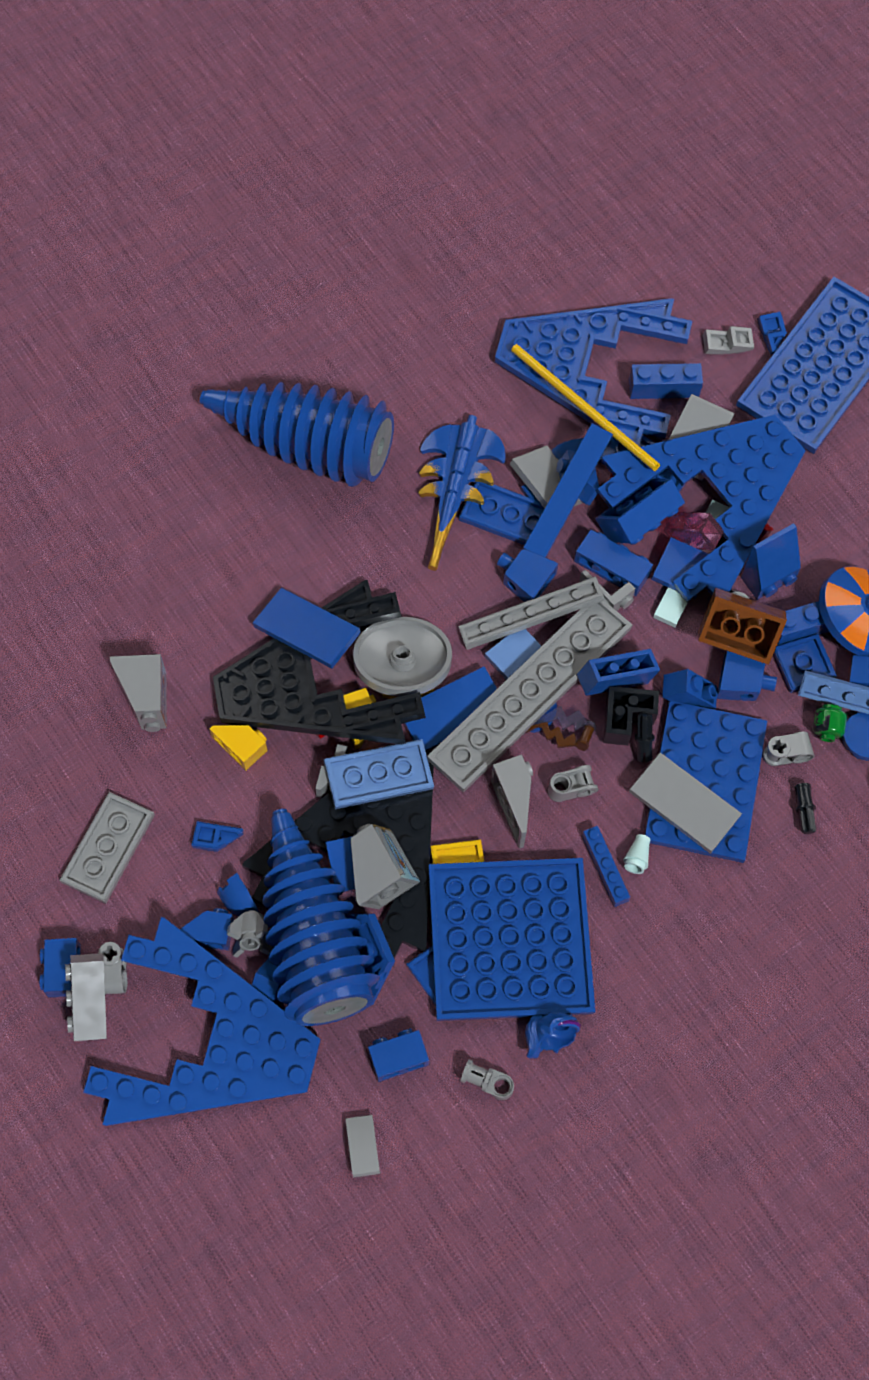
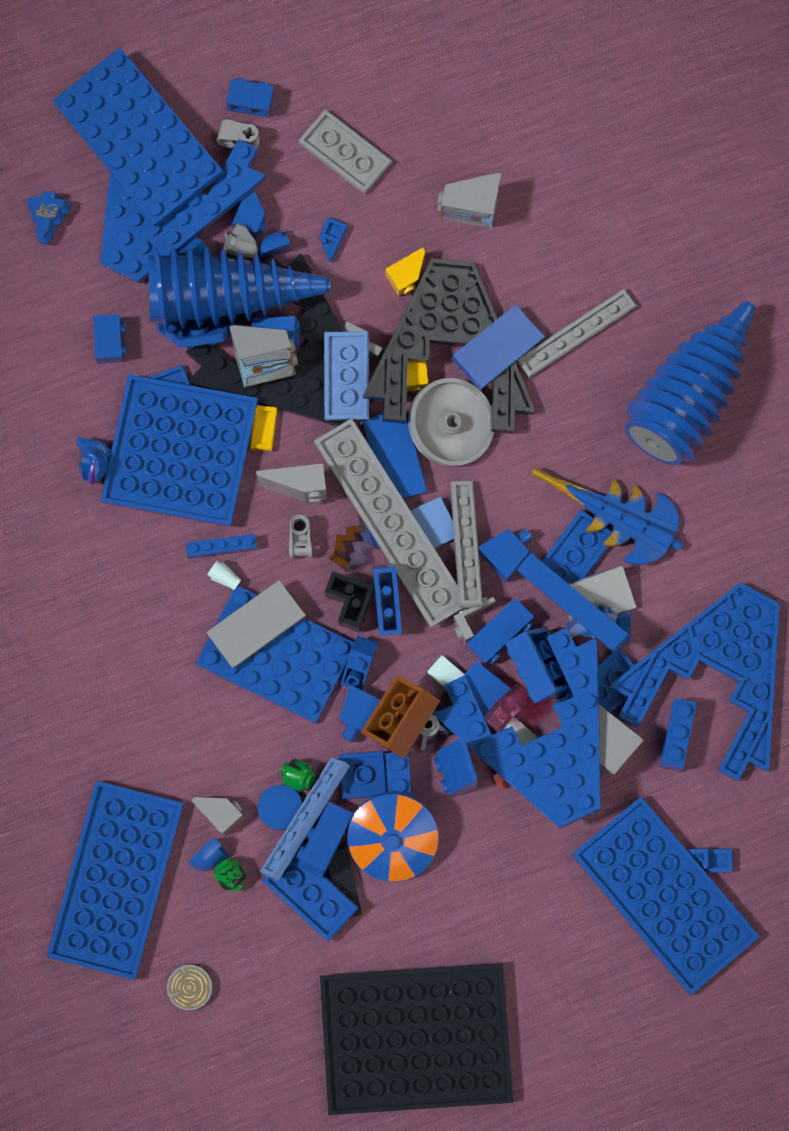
camera: 105 degrees right, 10 degrees up
(86, 997) = (216, 108): light grey brick -> none
(138, 1086) = (138, 137): none -> blue plate
(259, 1173) = (47, 214): none -> blue rock
(265, 559) = (576, 333): none -> light grey tile
(362, 1146) = (46, 295): light grey slope -> none
(486, 1079) = (71, 402): light grey connector -> none
(586, 408) = (652, 641): yellow piece -> none
(644, 736) = (322, 607): black axle -> none
(728, 342) = (712, 812): light grey slope -> none
(788, 749) = (283, 736): light grey piece -> none
(805, 808) = (227, 730): black axle -> none

